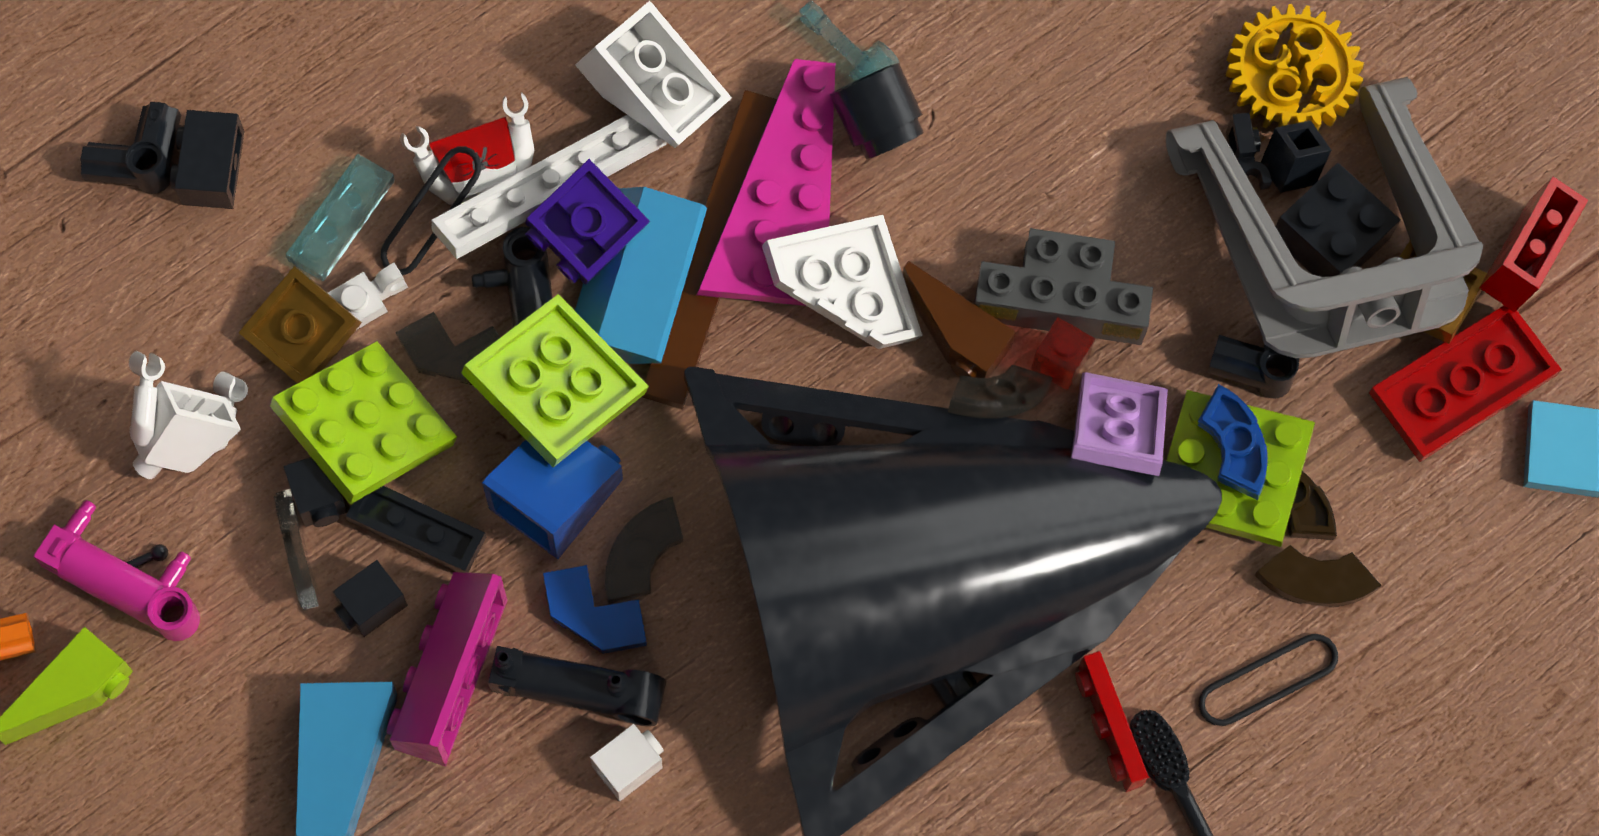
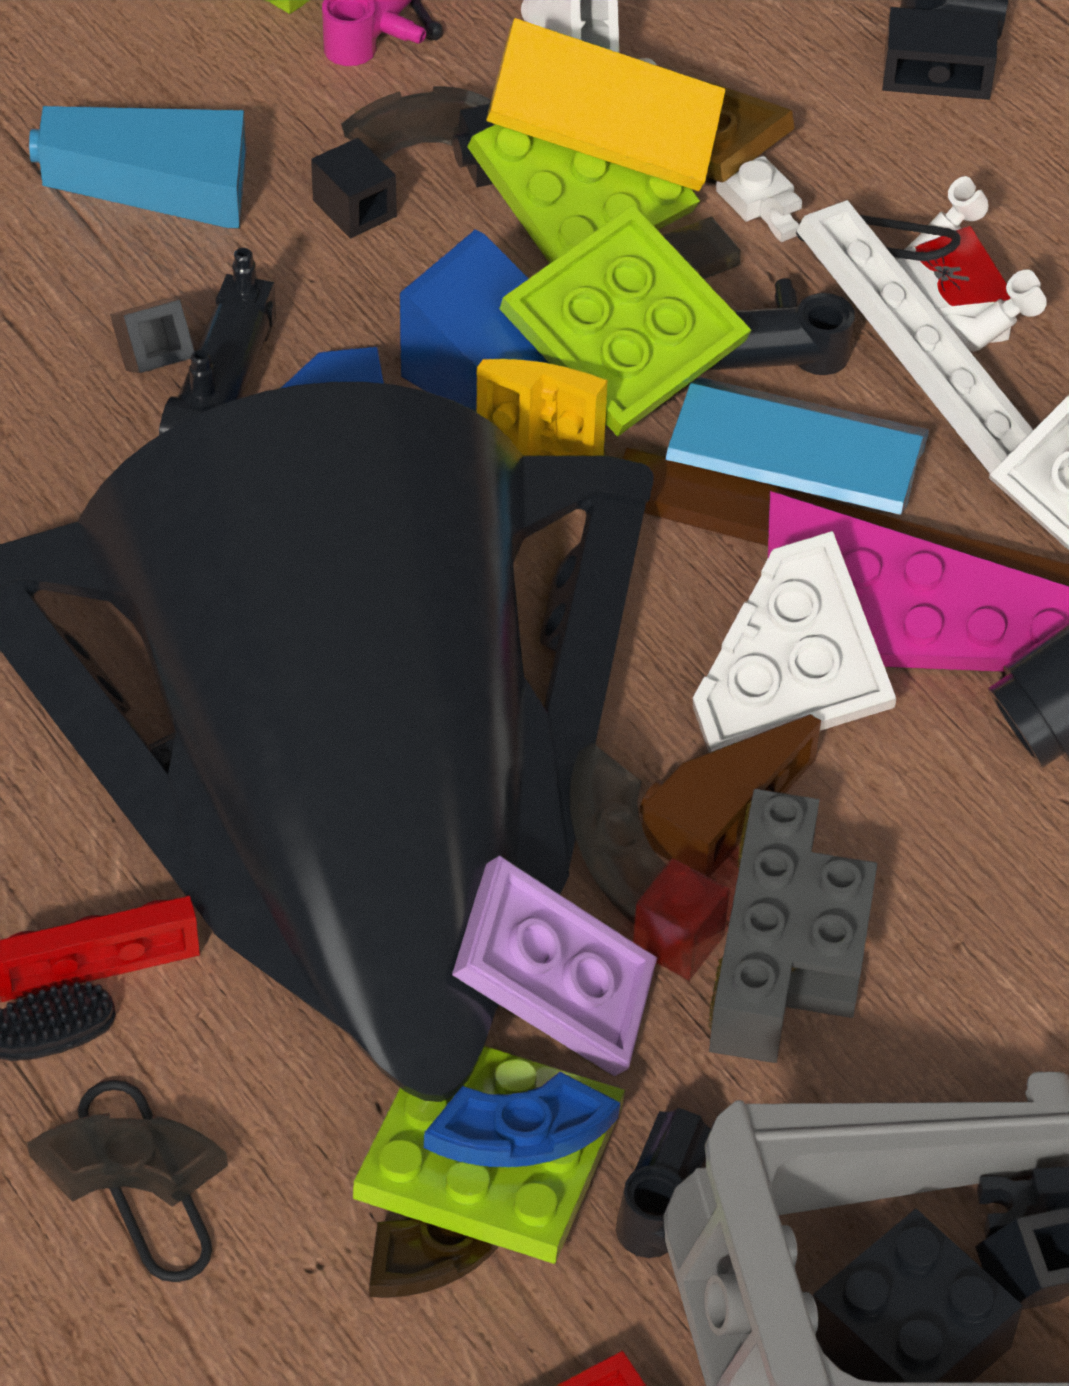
camera: 95 degrees right, 20 degrees down
(320, 395) = (606, 104): none -> yellow tile
(340, 217) = (870, 174): clear light blue plate -> none
(418, 528) = (463, 205): black plate -> none
(448, 667) = (195, 242): dark pink slope -> none
(551, 735) = (152, 335): none -> black brick
(585, 223) = (852, 351): dark purple plate -> none
(628, 761) = (109, 414): white brick -> none
(636, 444) = (544, 406): none -> yellow slope
(1259, 689) = (127, 1152): none -> clear smoke tile
(1316, 581) = (295, 1257): dark brown tile -> none

